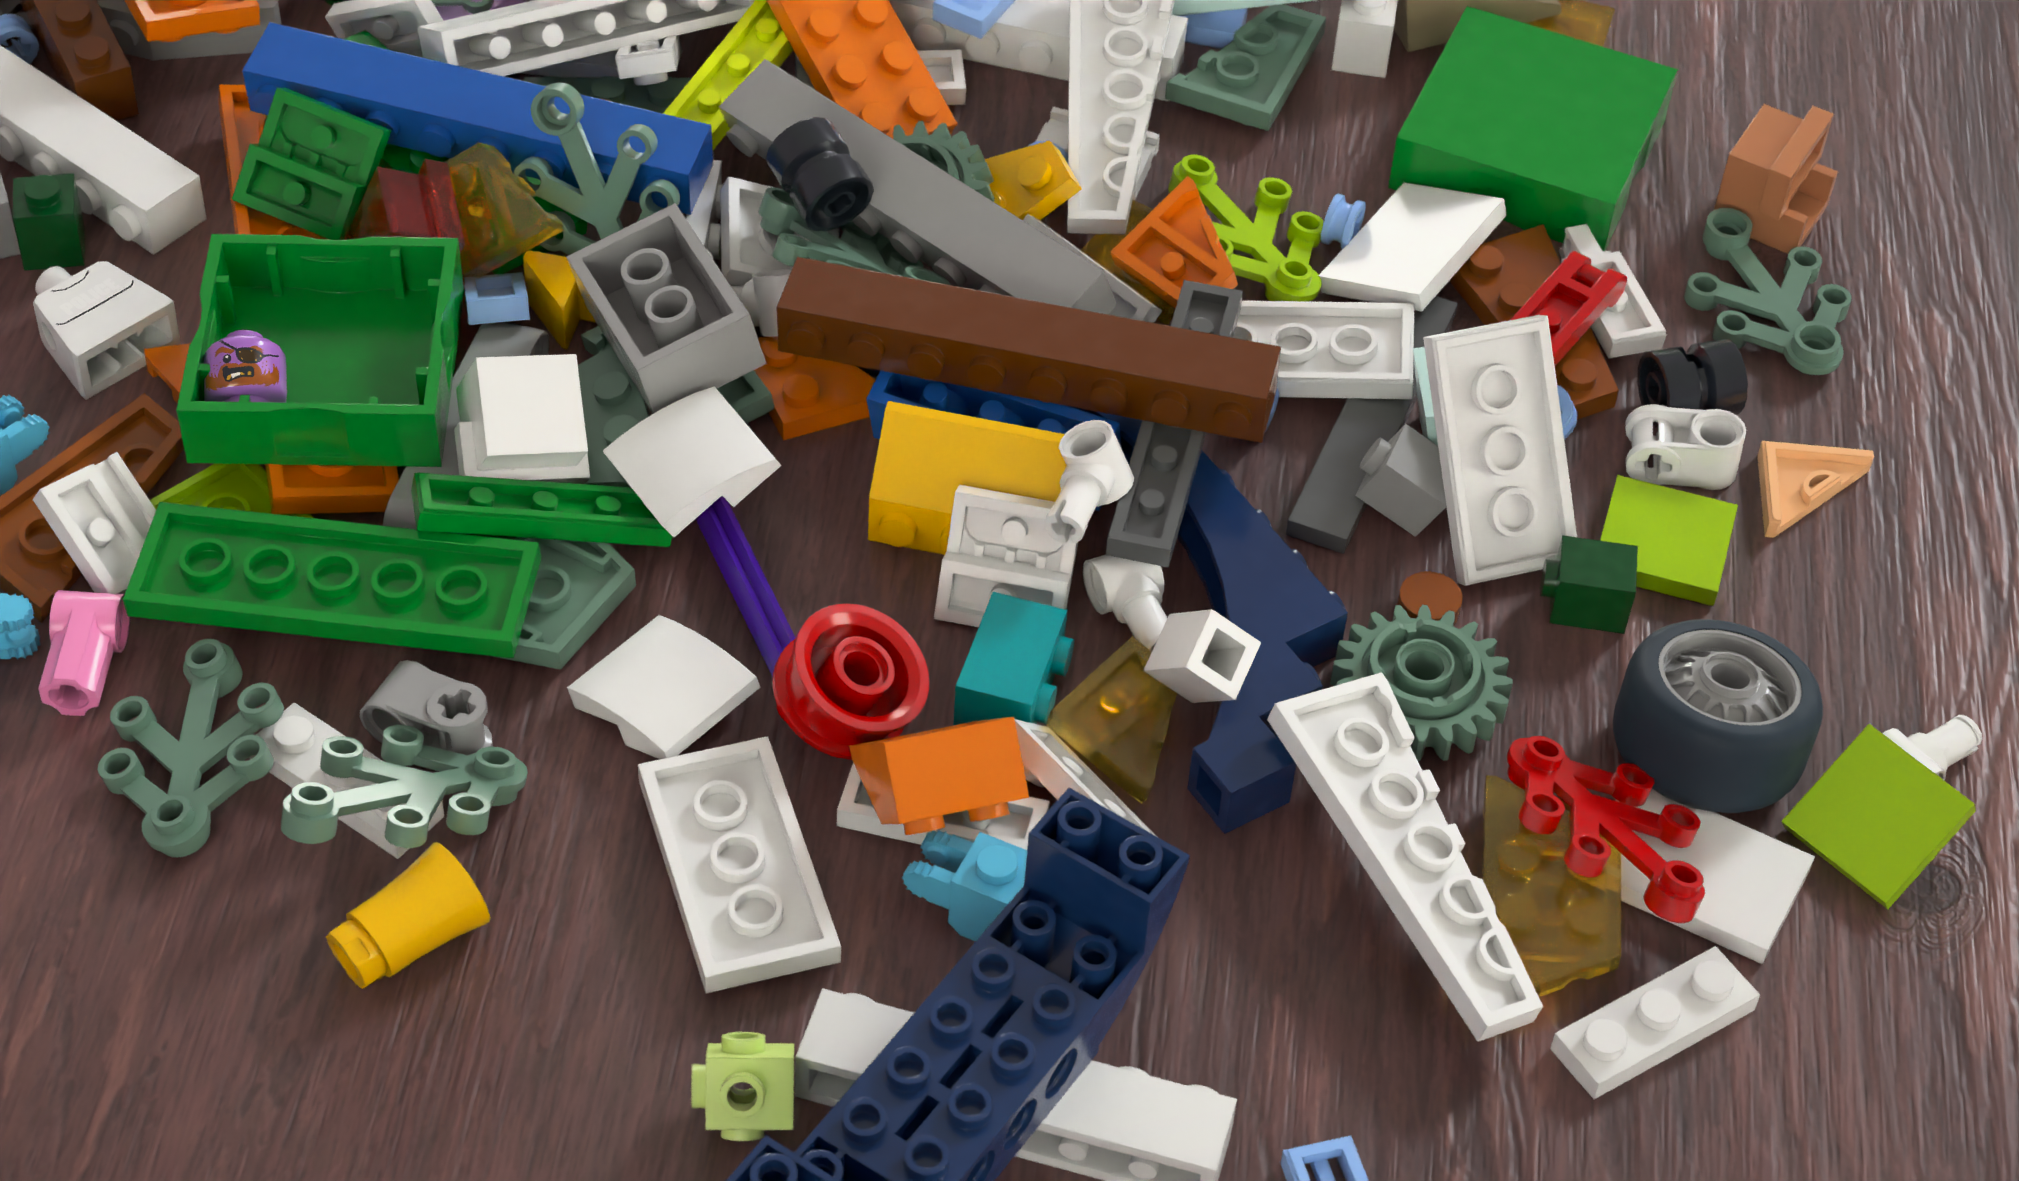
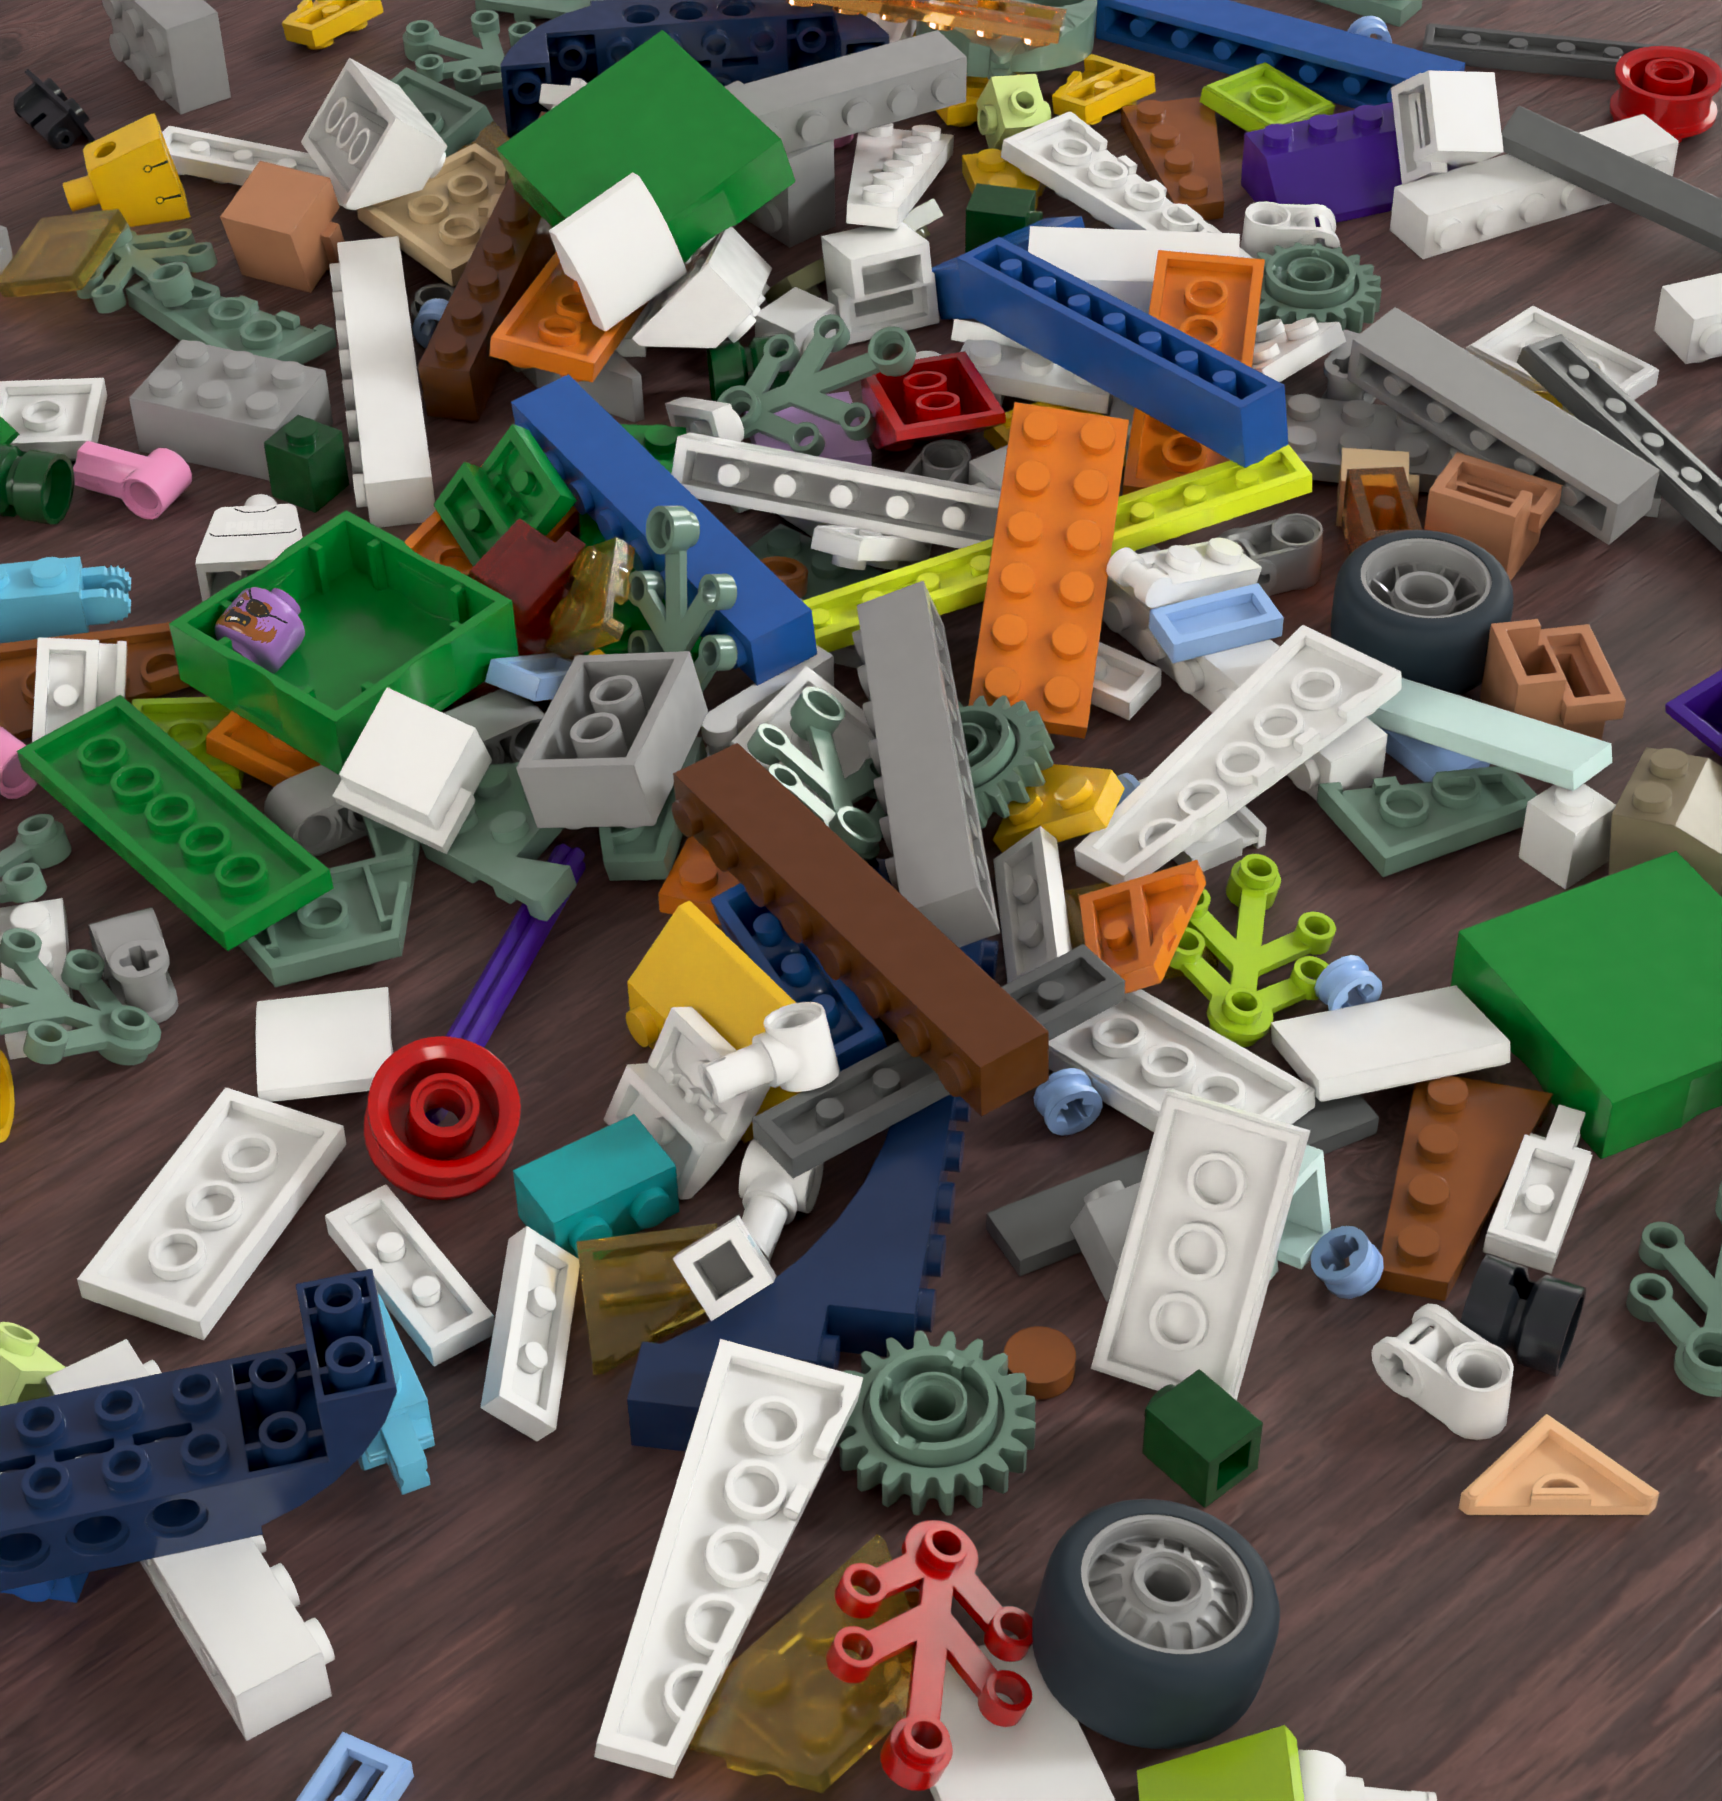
camera: 45 degrees right, 5 degrees down
(534, 510) = (373, 851): green tile -> none
(691, 458) = (515, 867): white slope -> none
(819, 174) = (844, 690): black wheel -> none
(942, 773) = (407, 1229): orange slope -> none
(1573, 300) = (1442, 1172): red plate -> none
(1677, 536) = (1342, 1447): lime tile -> none

